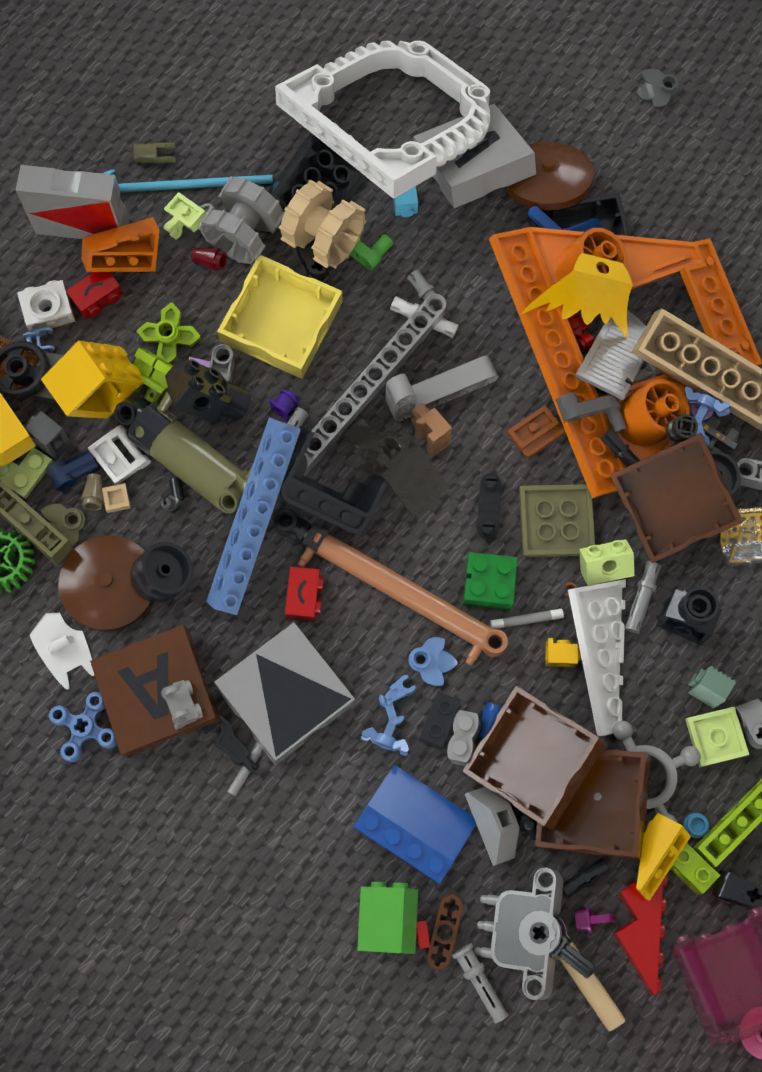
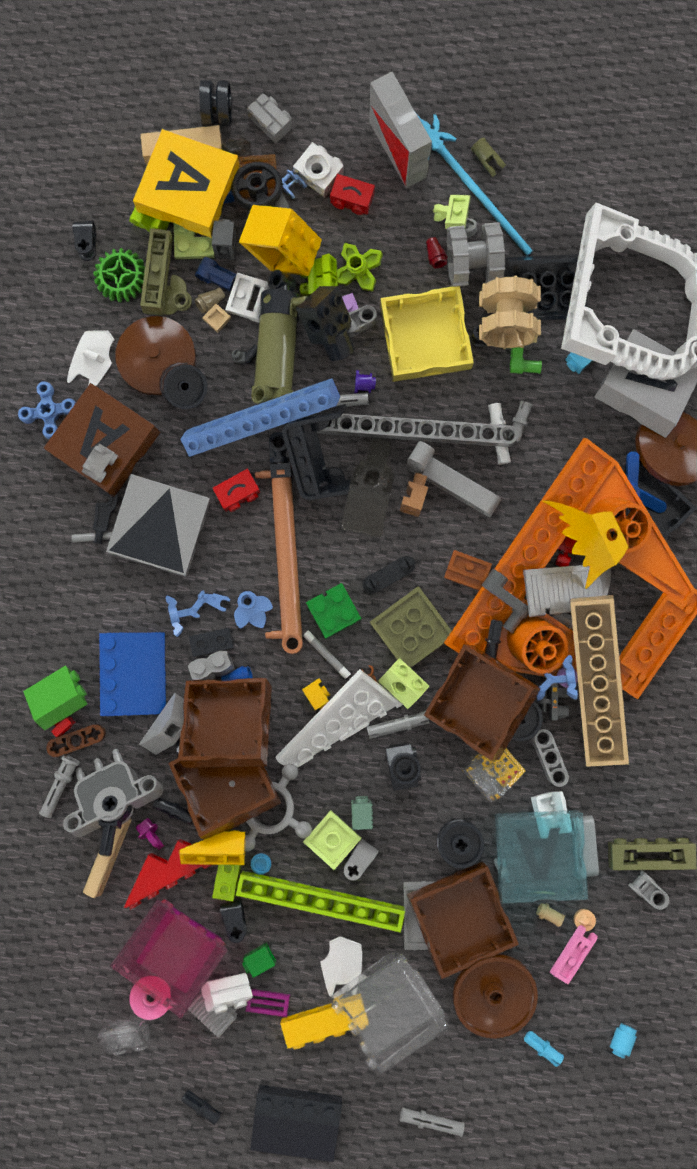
camera: 60 degrees right, 10 degrees up
(122, 248) = (394, 188): orange wedge -> none
(676, 431) = (529, 669): pearl dark grey wheel -> none

